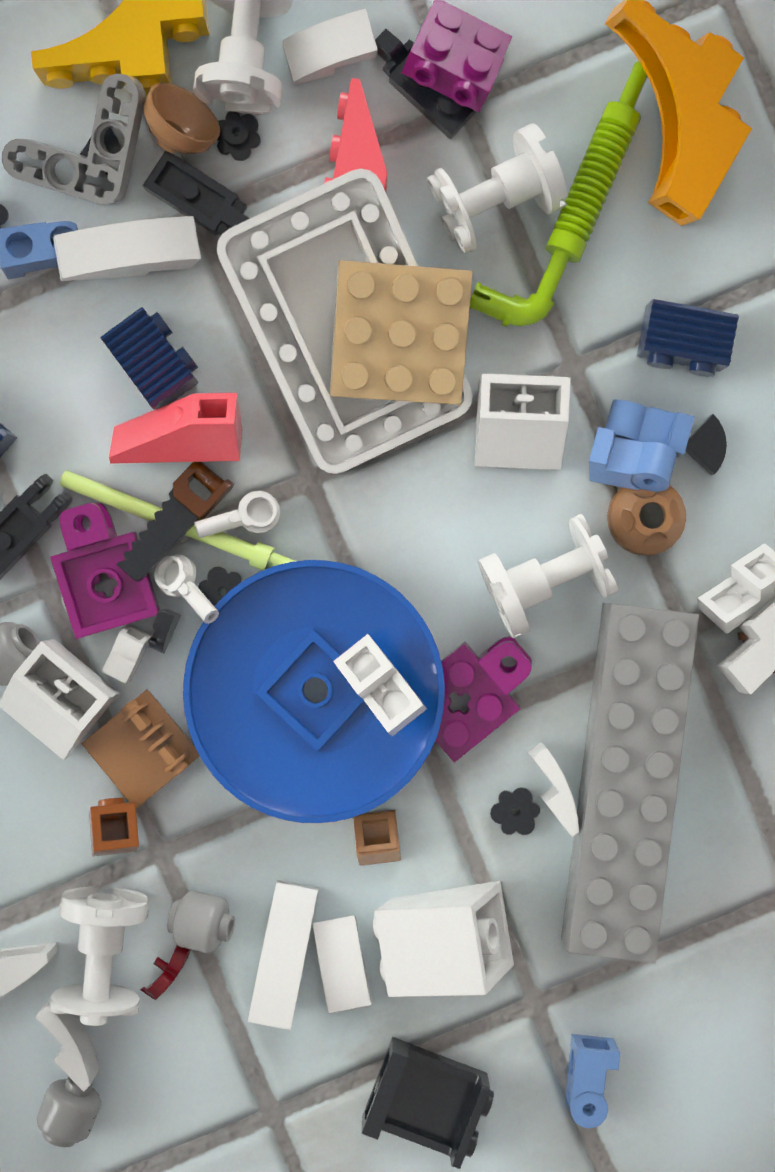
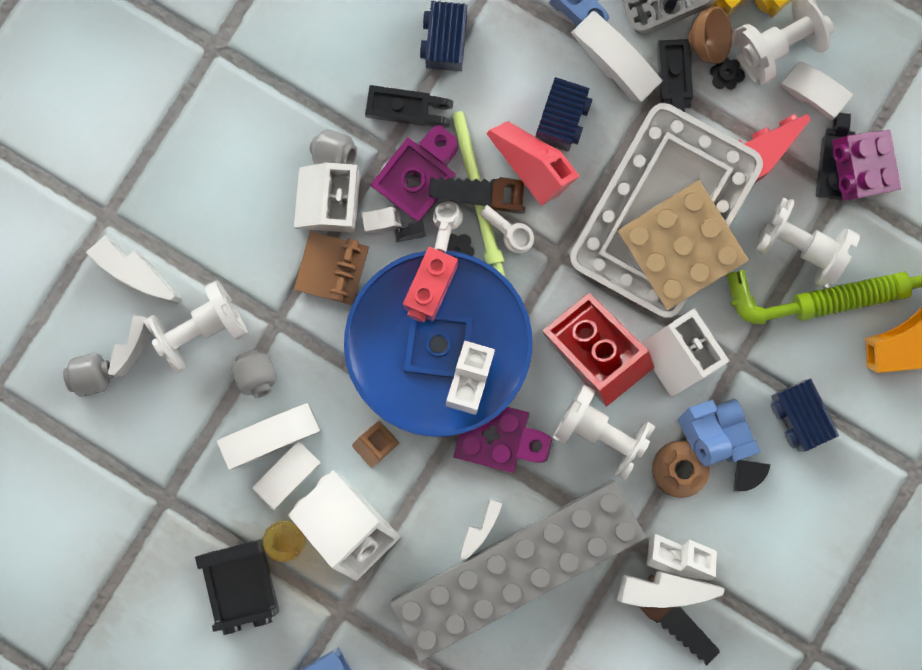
camera: 60 degrees right, 5 degrees down
(113, 827) = (275, 283): dark orange brick -> none
(170, 972) = (211, 377): dark red piece -> none
(242, 656) = (430, 285): none -> coral brick
(414, 1021) = (283, 541): none -> clear yellow head
(449, 512) = (599, 349): none -> red slope
(522, 821) = (447, 524): black plant -> none

